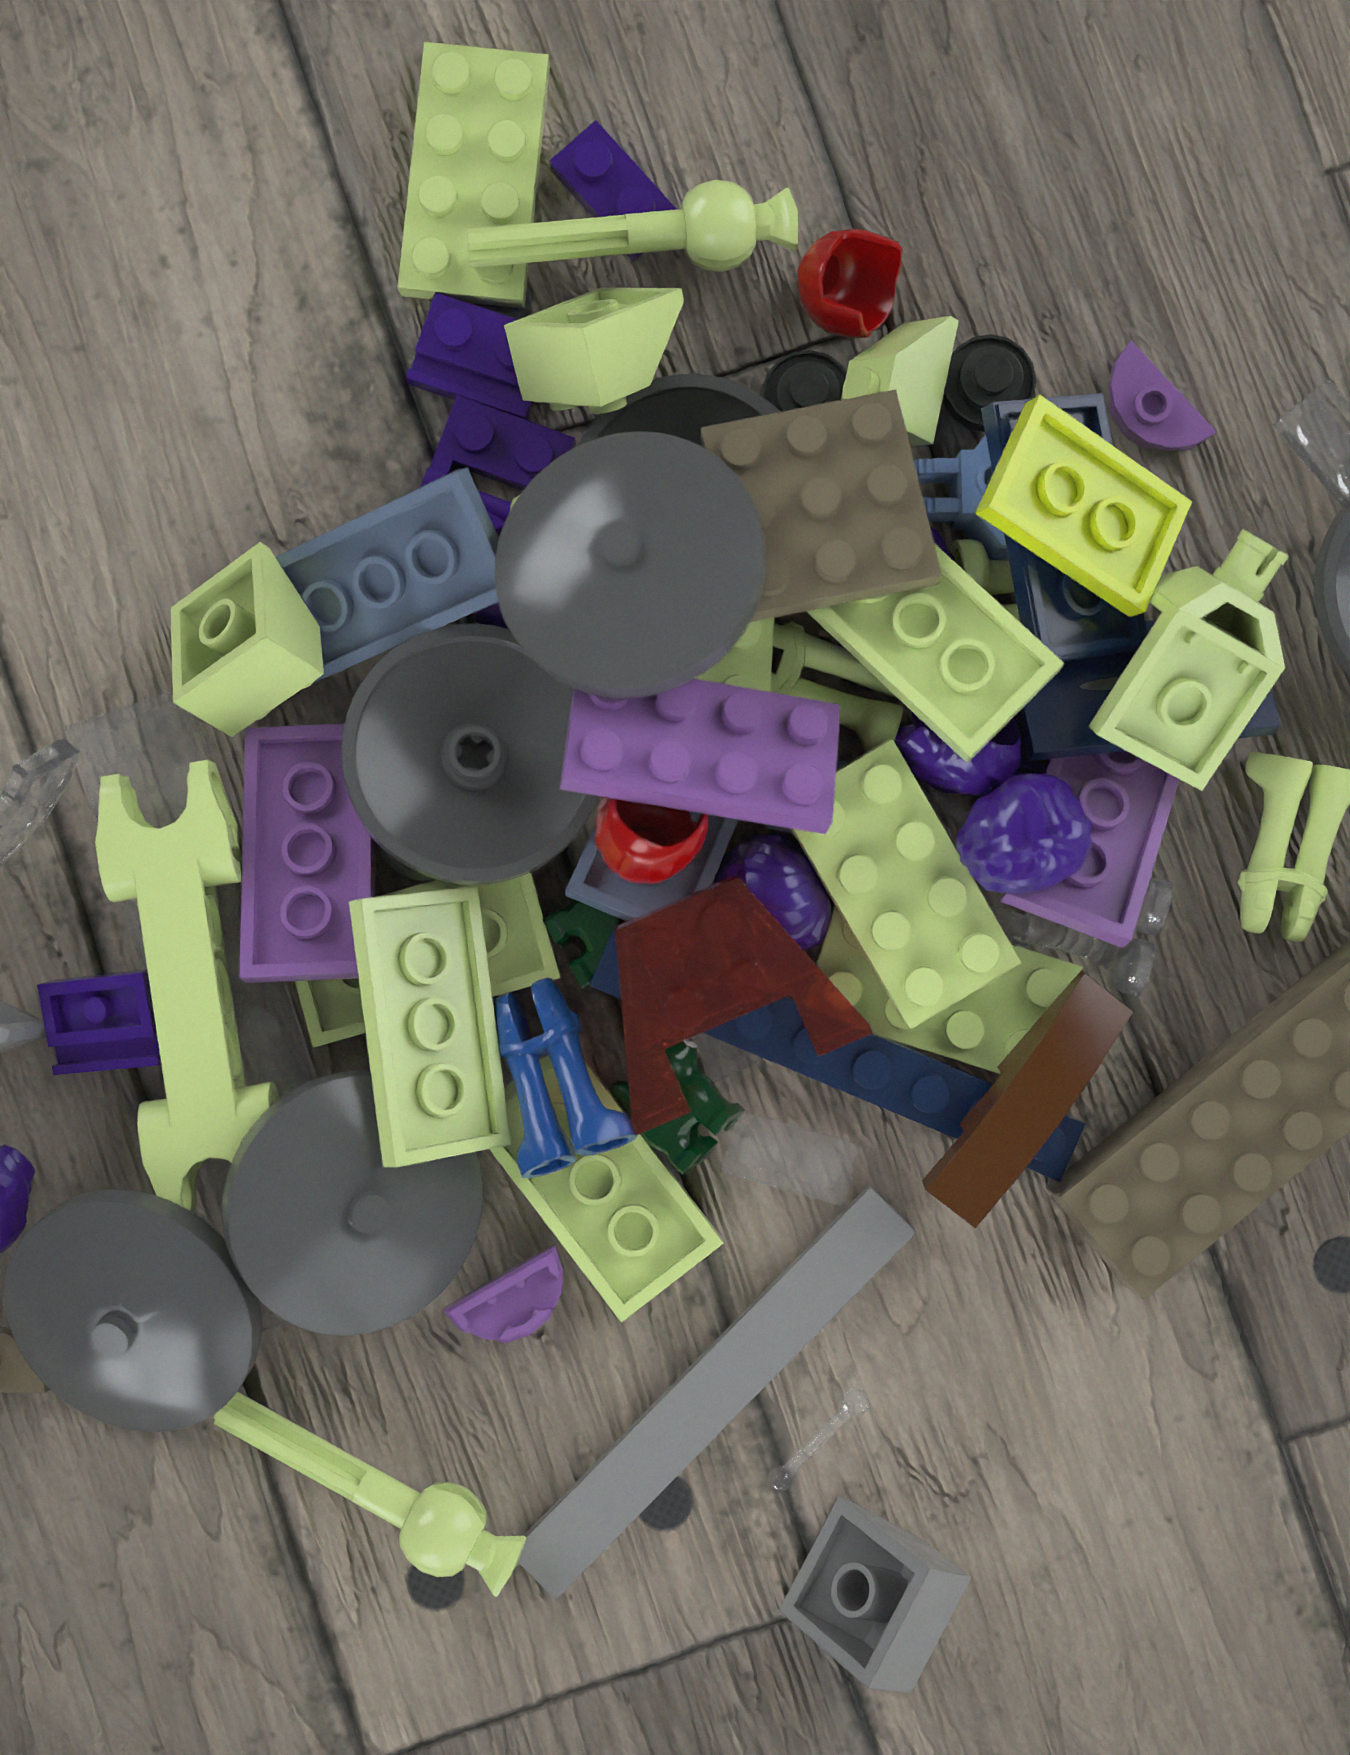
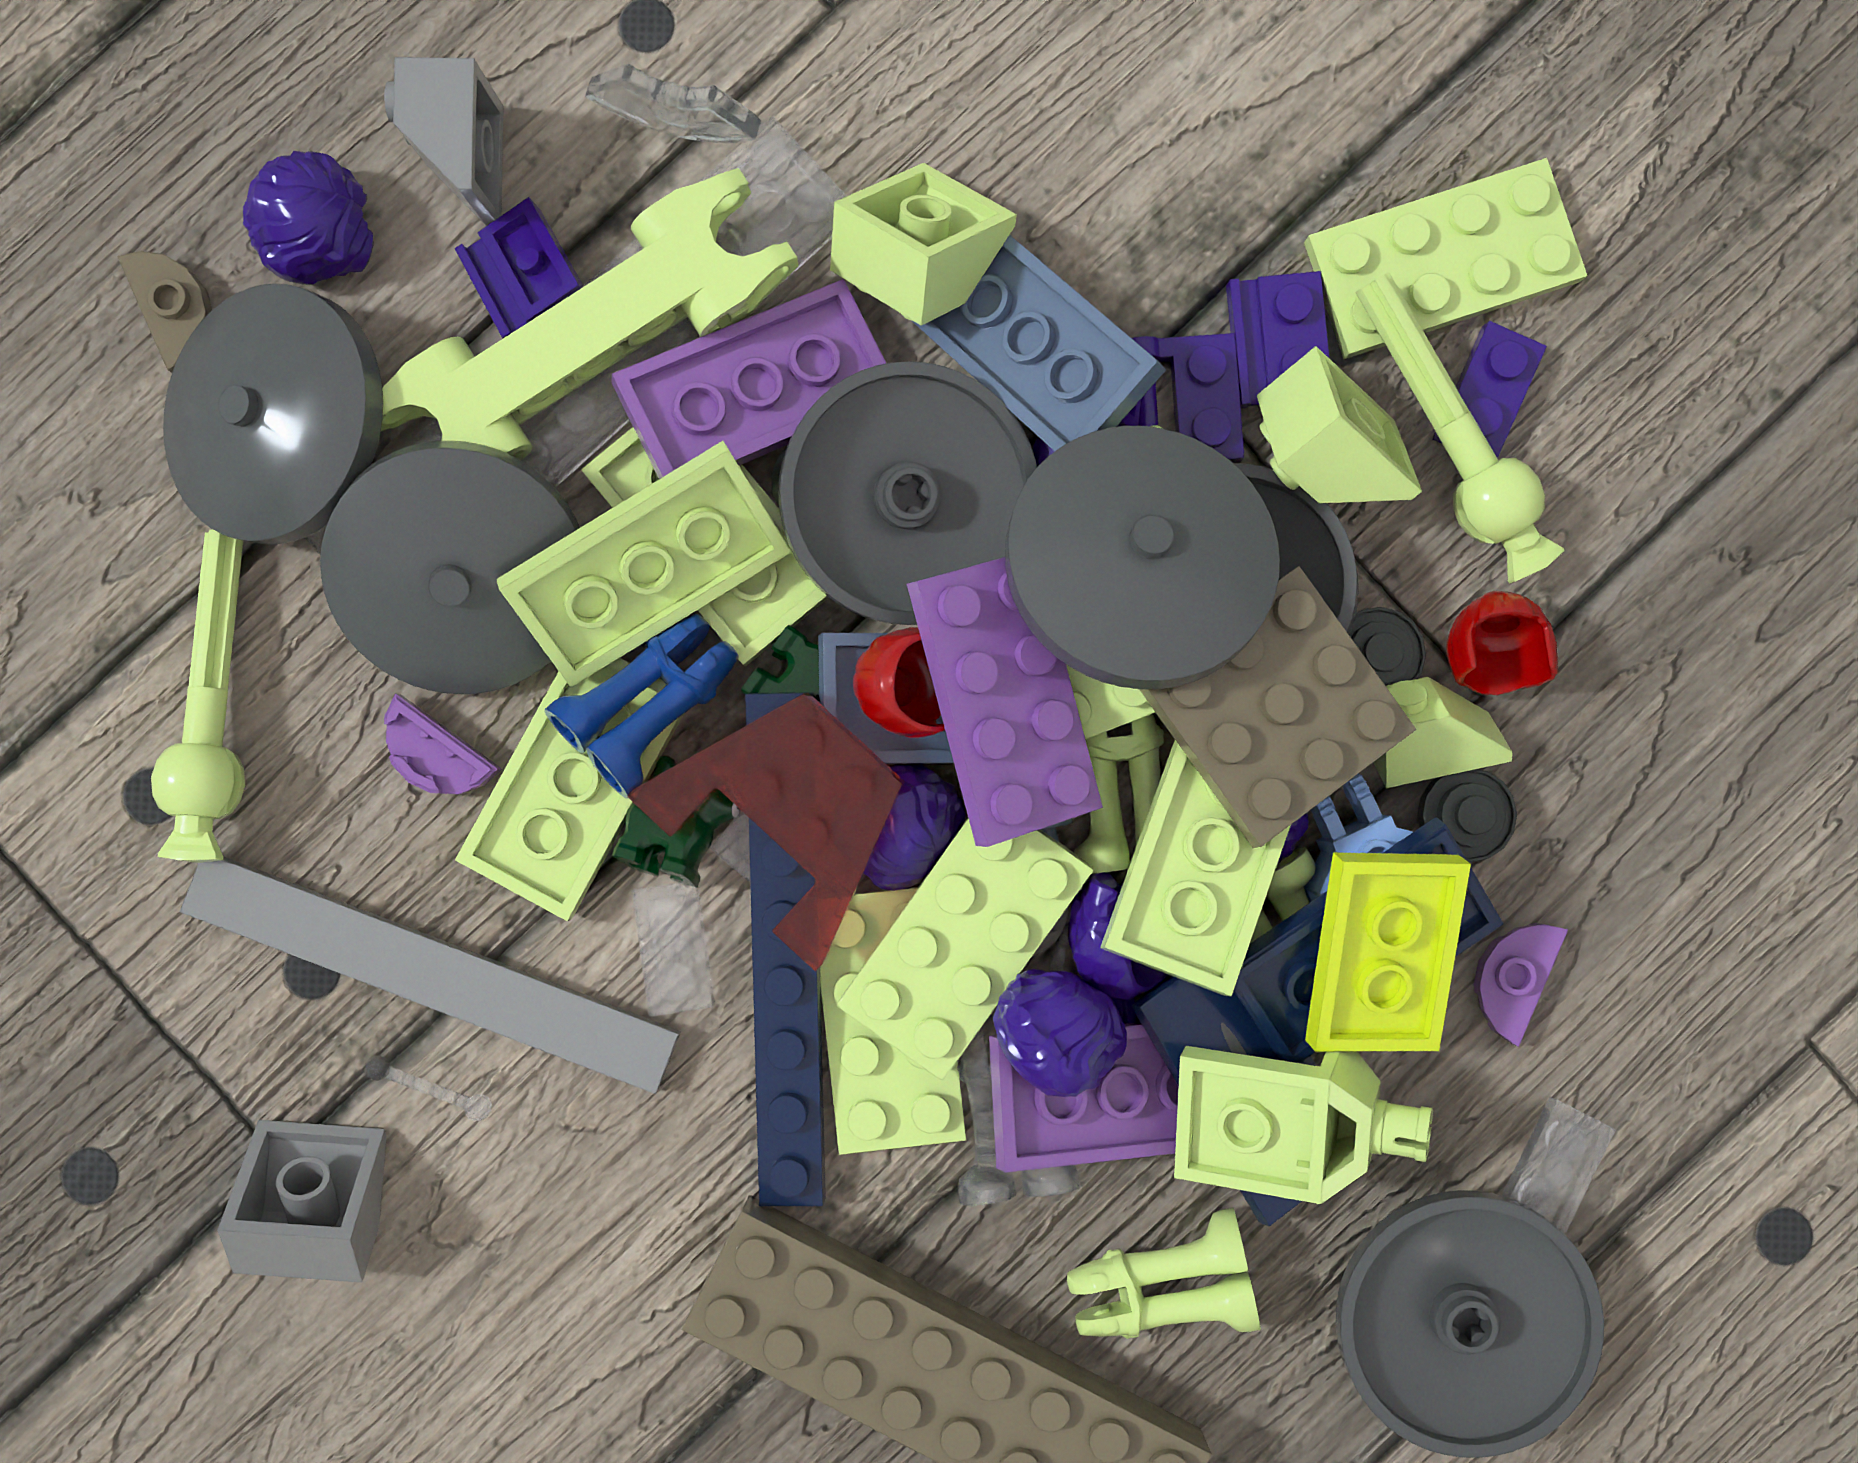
camera: 70 degrees right, 0 degrees up
(1029, 1099) = (818, 1142): reddish brown slope -> none

